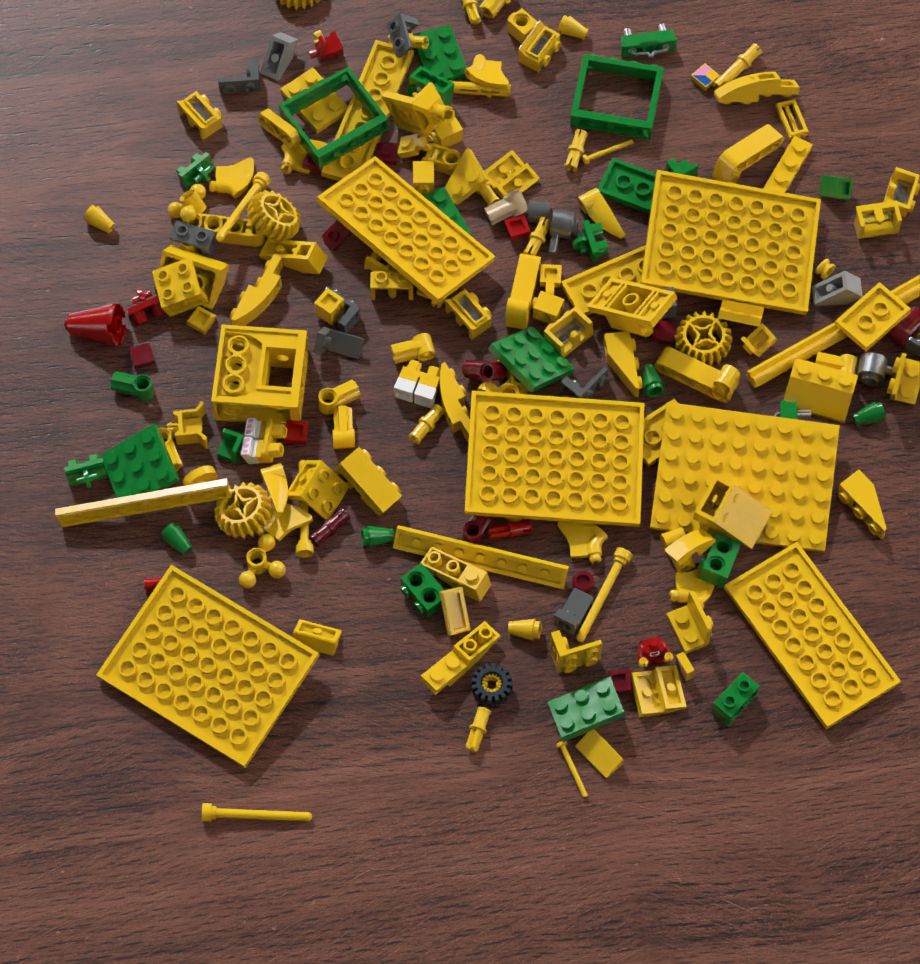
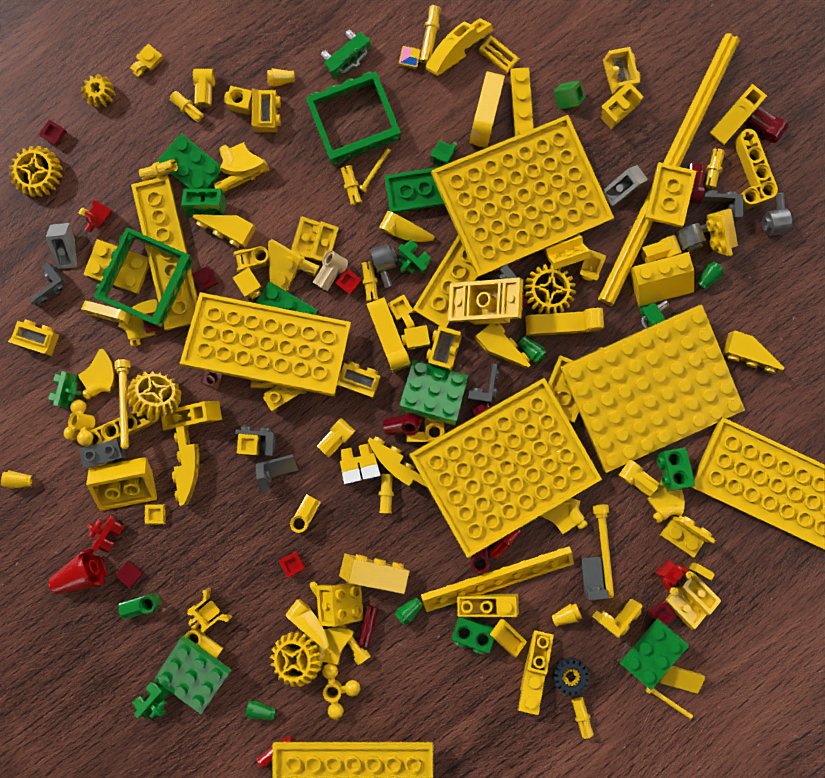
camera: 35 degrees left, 20 degrees up
(143, 503) = (216, 705): yellow tile -> none
(179, 287) = (119, 505): yellow bracket -> none
(200, 475) = (245, 654): yellow piece -> none
(231, 446) = (250, 609): green panel -> none
(257, 352) = (229, 540): yellow piece -> none
(260, 441) = (278, 596): yellow hips -> none
(317, 637) = (415, 719): yellow slope -> none
(343, 428) = (329, 542): yellow piece -> none
(398, 30) = (144, 166): dark grey bracket -> none
(412, 144) = (221, 260): yellow plate -> none
(418, 113) = (215, 232): yellow plate -> none
(538, 209) = (356, 256): dark grey brick -> none
(583, 581) = (583, 548): dark red tile -> none
(687, 545) = (650, 475): yellow slope -> none
(732, 512) = (665, 429): yellow slope -> none
(735, 699) = (755, 574): green brick -> none
(825, 269) = (604, 171): yellow bush -> none

